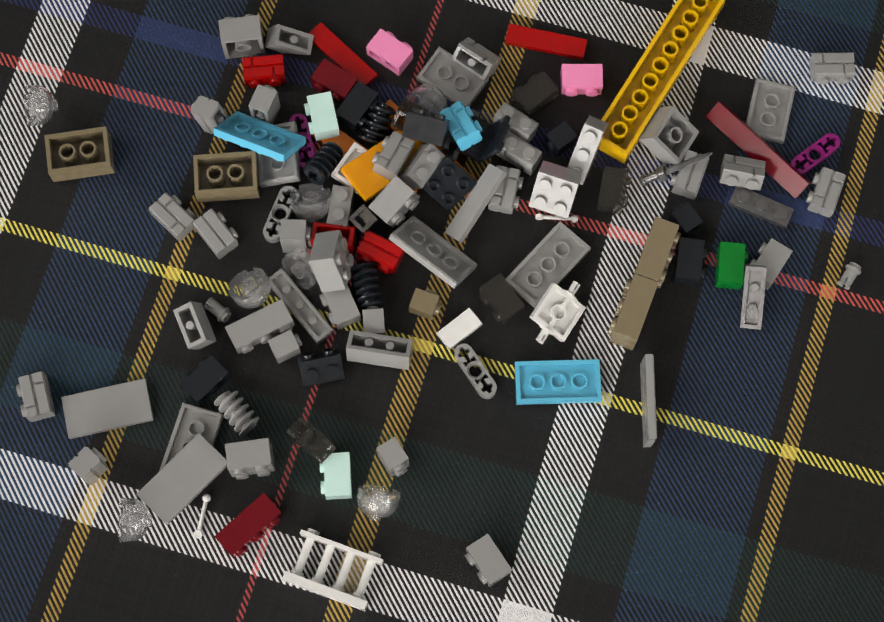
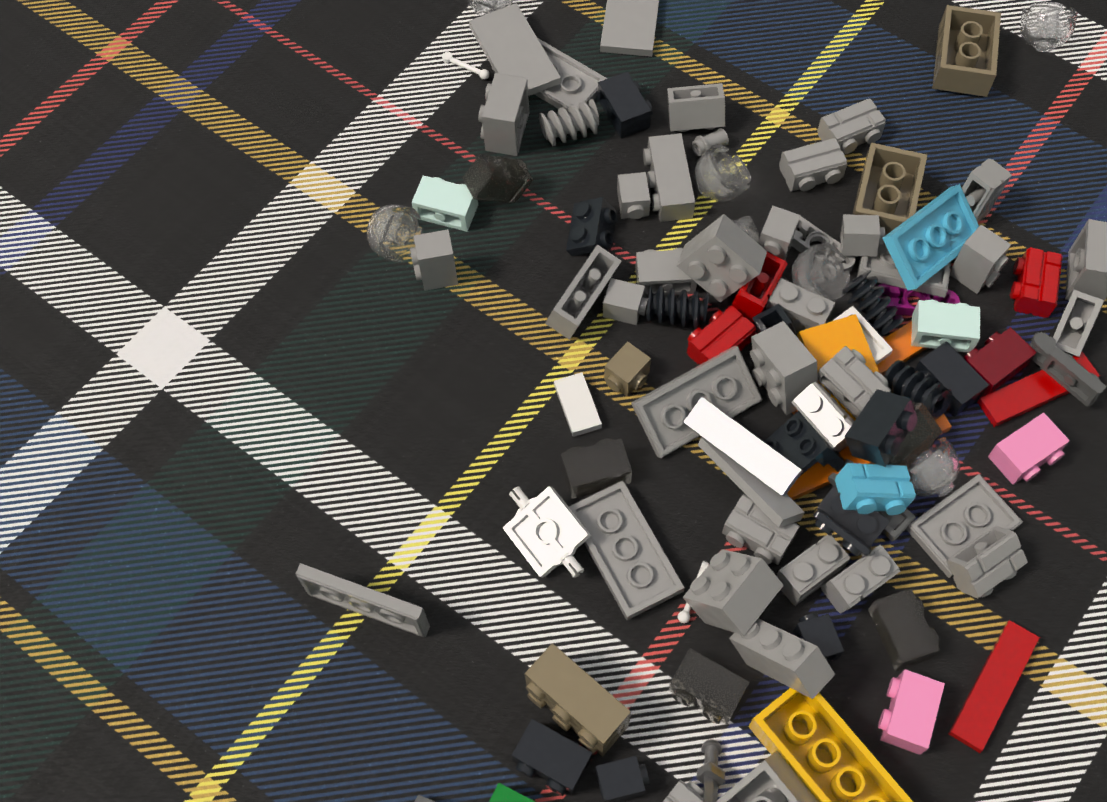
camera: 115 degrees right, 10 degrees down
(249, 526) = (429, 100): dark red brick -> none
(272, 183) = (861, 235): none -> light grey brick
(300, 306) = (676, 232): light grey tile -> none
(316, 585) = (319, 149): white fence -> none
(329, 40) = (1066, 370): none -> dark grey hinge
(459, 211) = (743, 446): none -> tile
(472, 355) = (504, 414): light grey beam -> none
(488, 560) = (259, 331): light grey brick -> none
(558, 382) = (449, 500): medium azure plate -> none
(632, 311) = (499, 628): dark tan brick -> none

